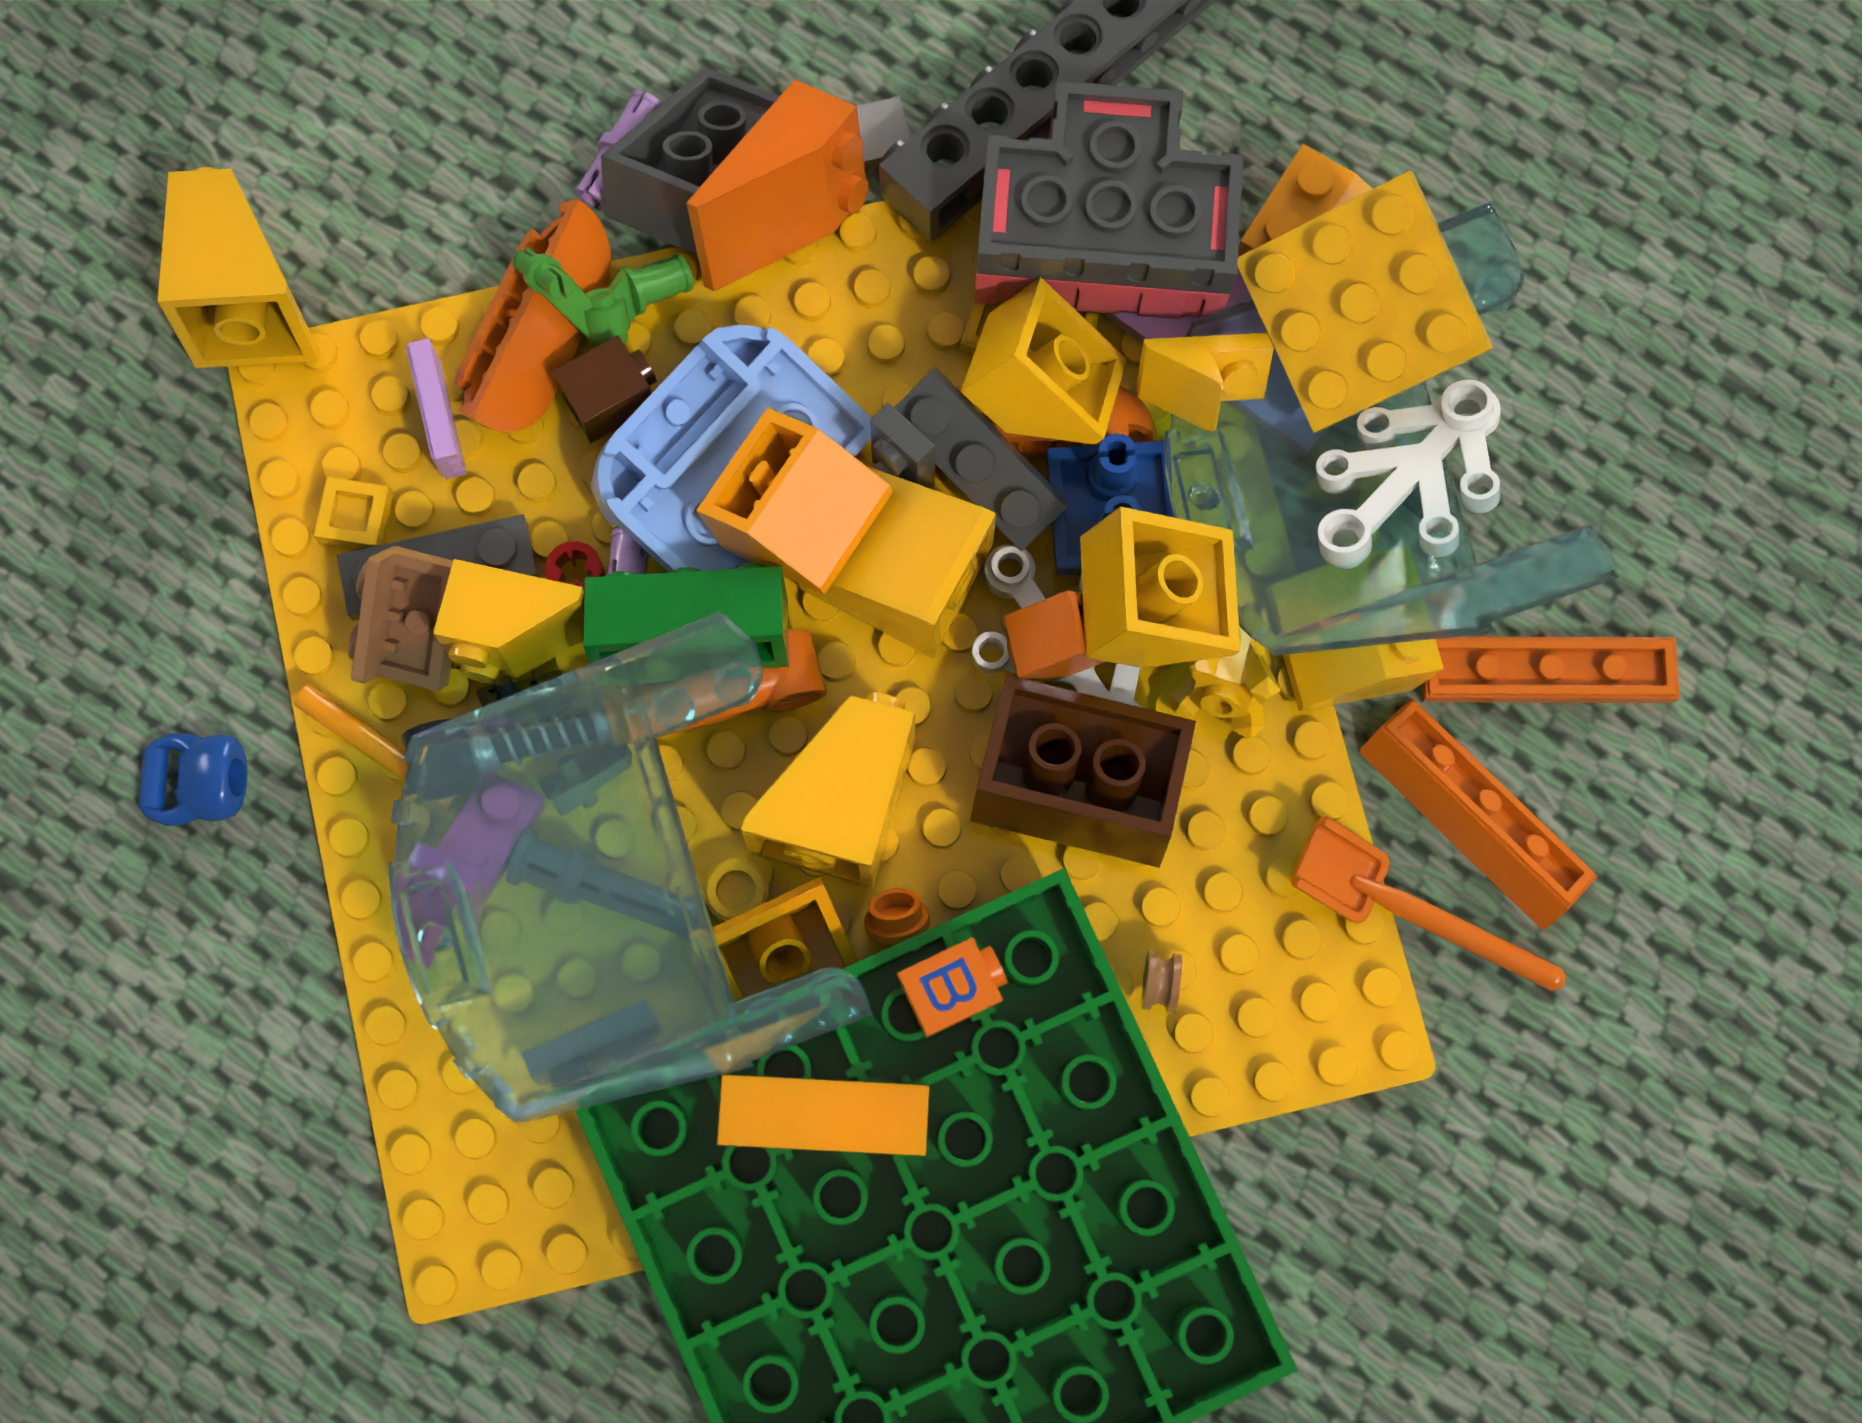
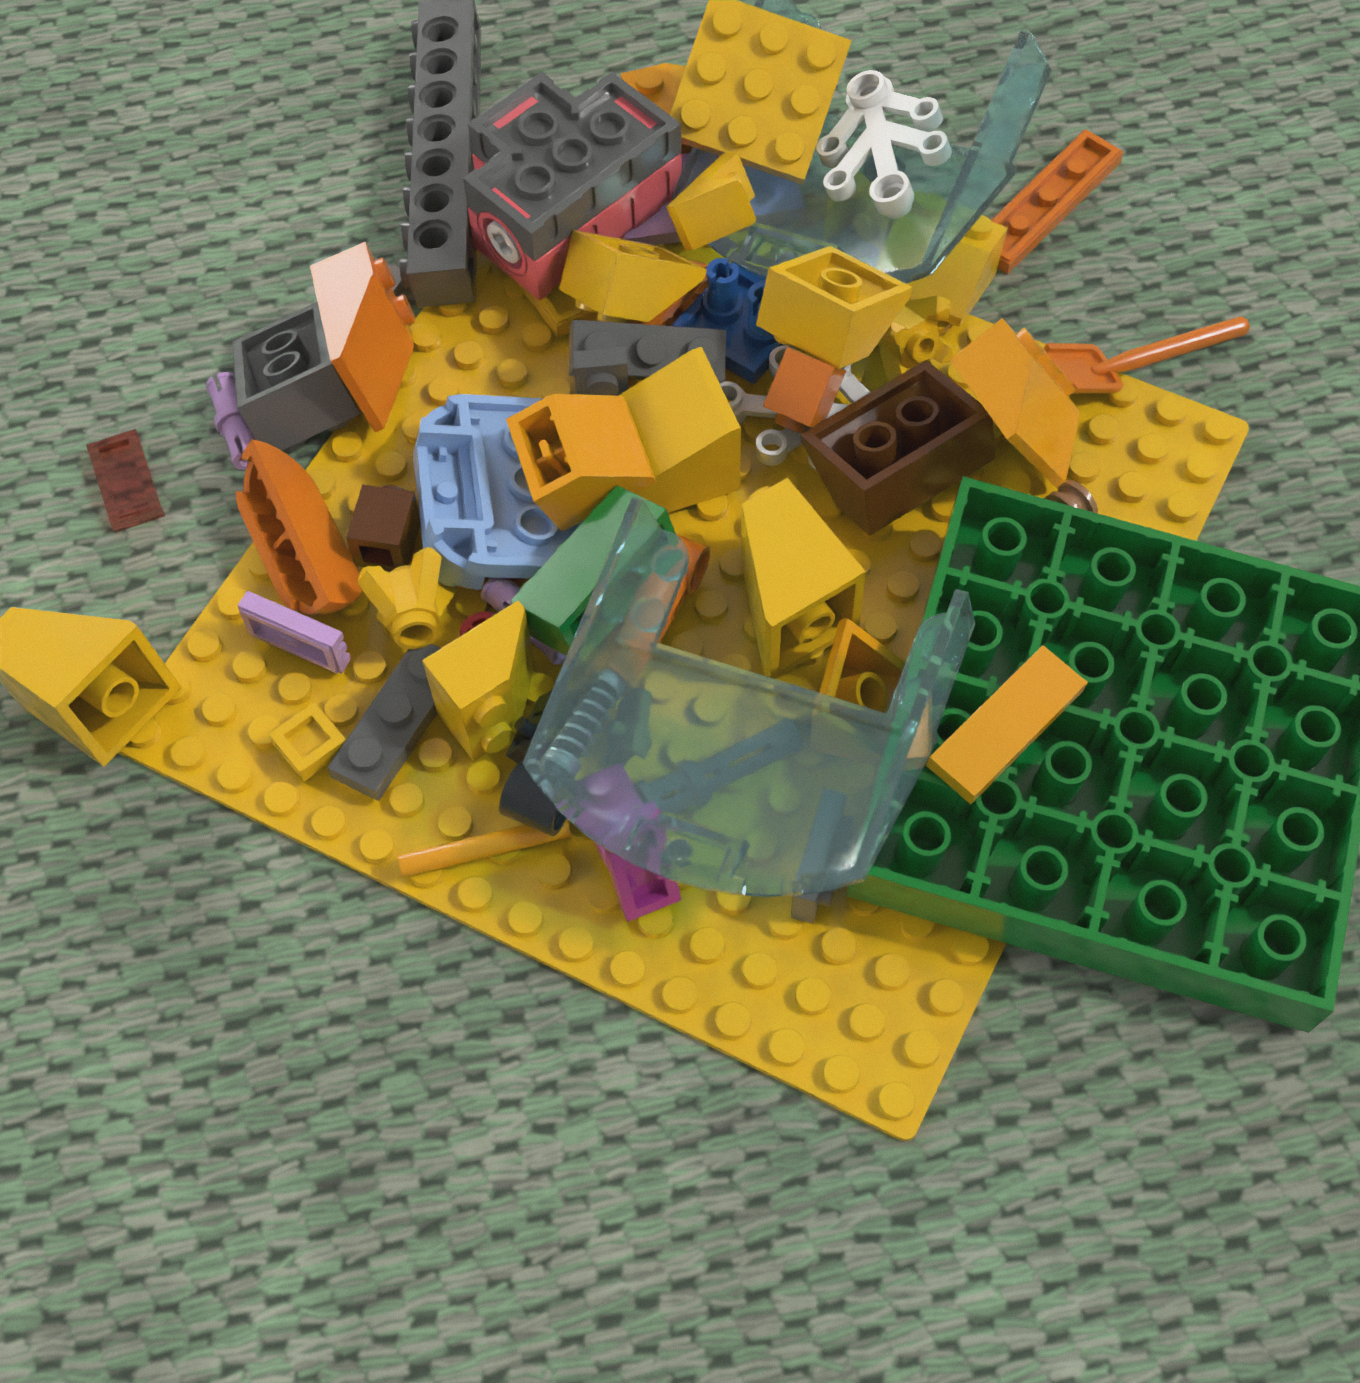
camera: 45 degrees left, 15 degrees down
(208, 778) = (395, 979): blue piece -> none
(398, 618) = (423, 745): medium nougat bracket -> none
(483, 116) = (125, 480): none -> clear red tile
(539, 480) = (409, 598): none -> yellow rock
(604, 310) = (334, 489): bright green pin -> none
(895, 916) = (896, 619): orange plate -> none
(952, 985) = (993, 579): orange brick -> none
(1204, 857) = (1023, 396): none -> light orange slope
(1478, 814) = (1104, 294): orange slope -> none

